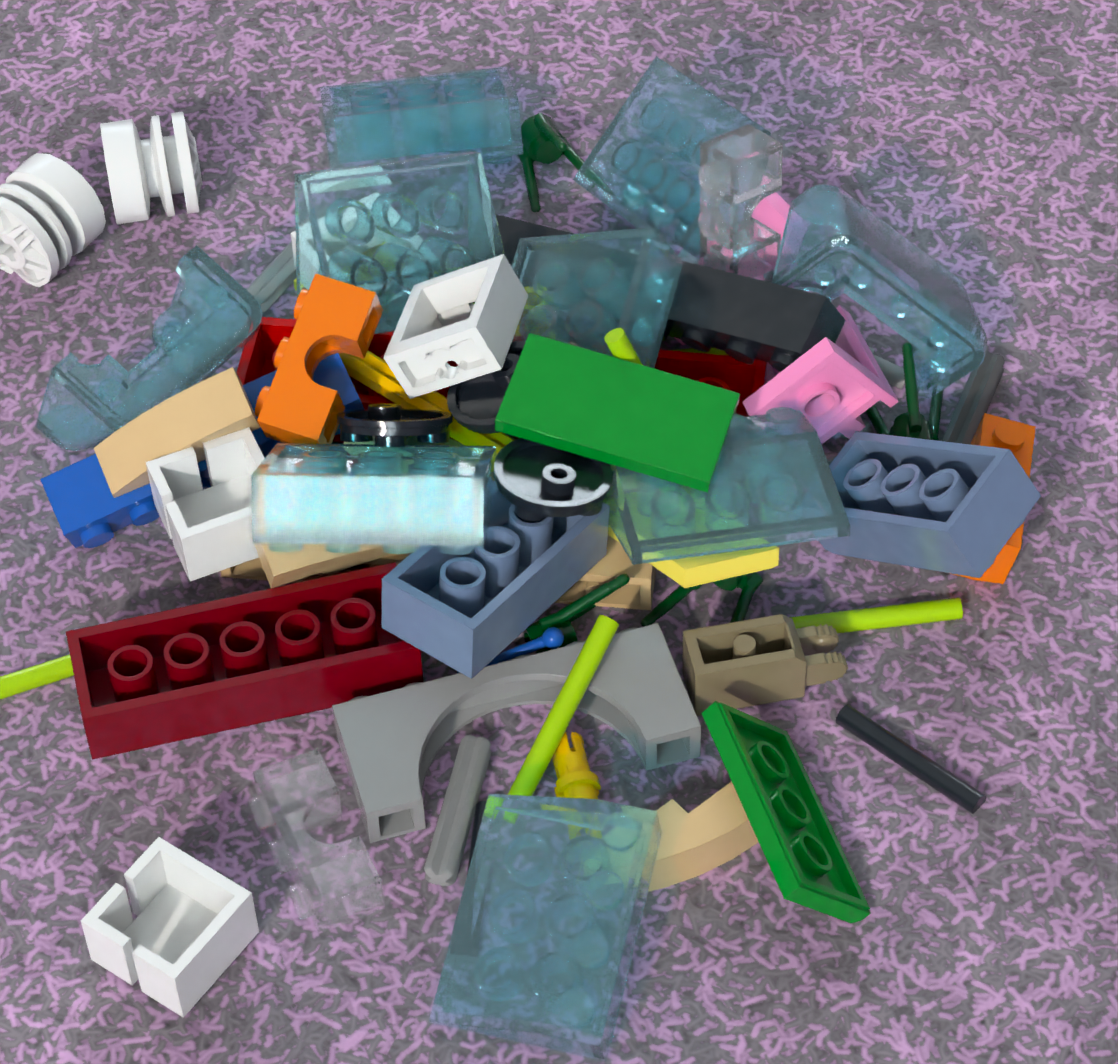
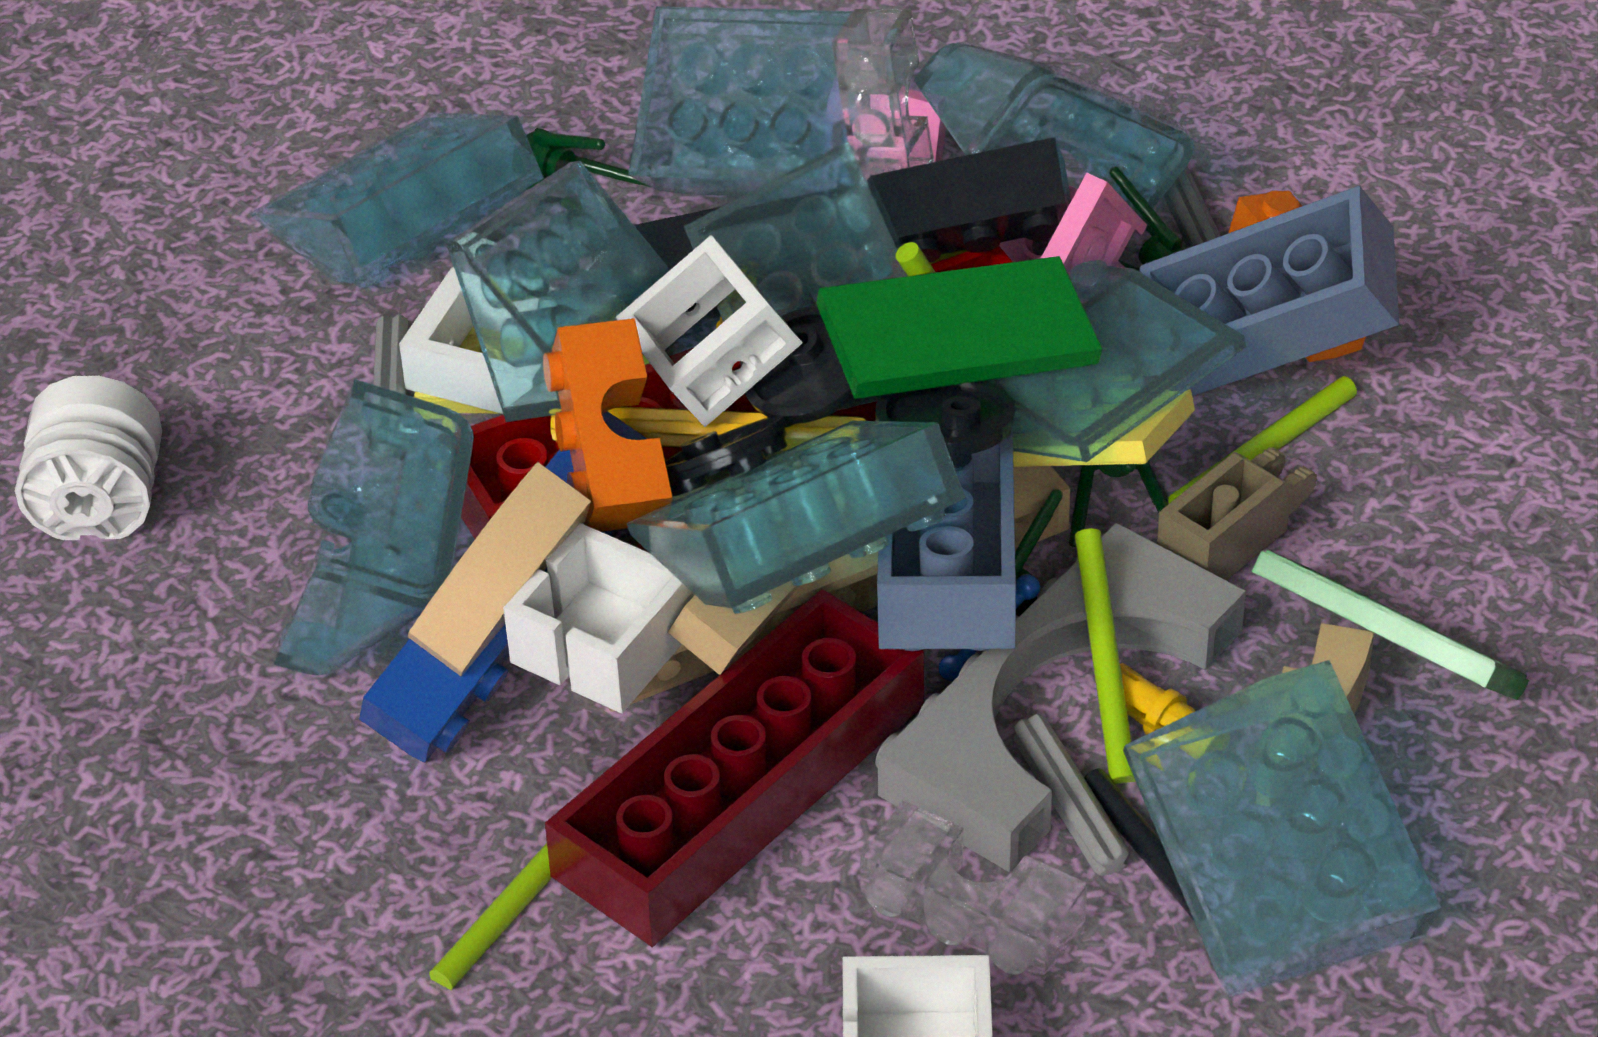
camera: 35 degrees left, 5 degrees down
(150, 167) = (171, 349): white wheel -> none
(910, 759) = (1432, 534): black bar -> none

